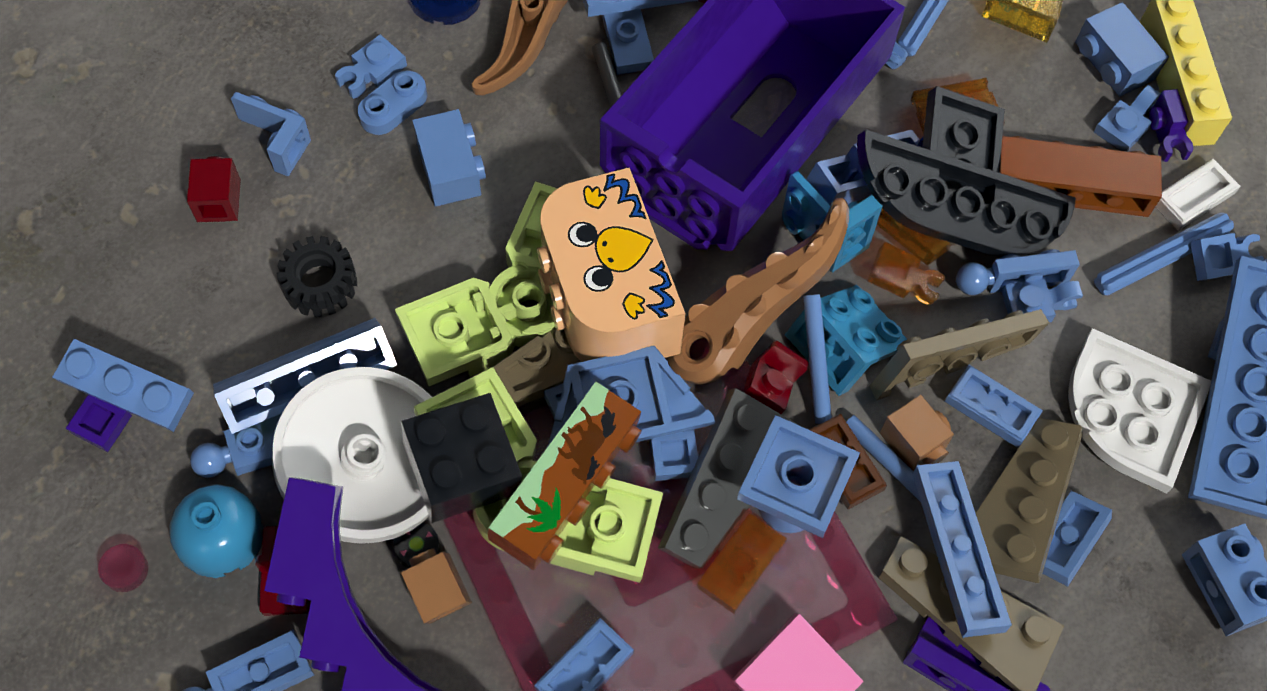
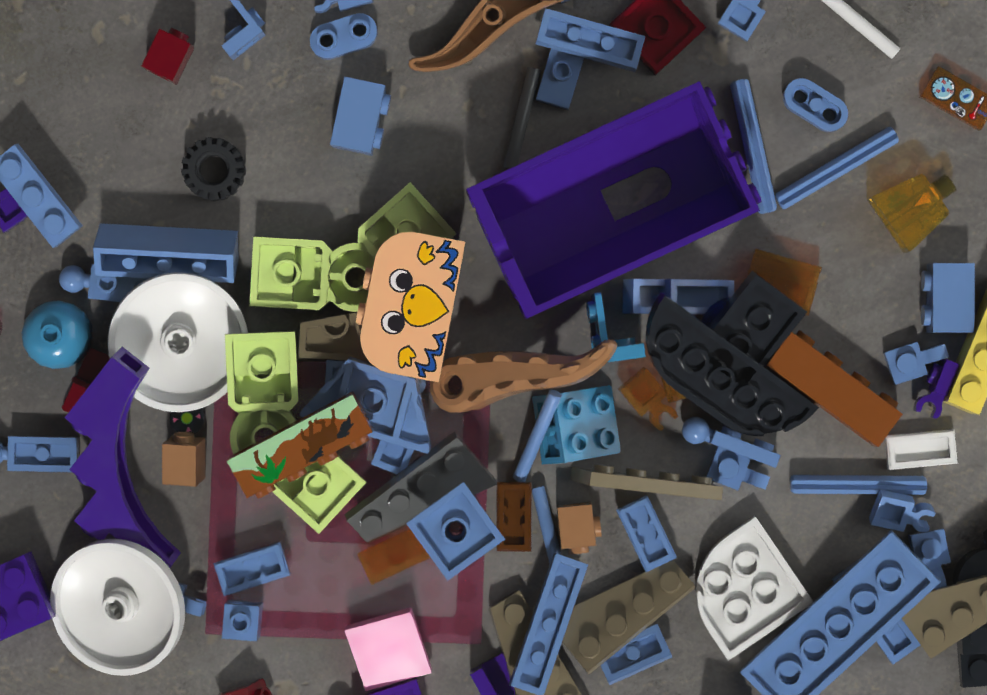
camera: 35 degrees right, 25 degrees up
(461, 457) = (234, 397): black brick -> none
(773, 376) = (496, 432): dark red bracket -> none

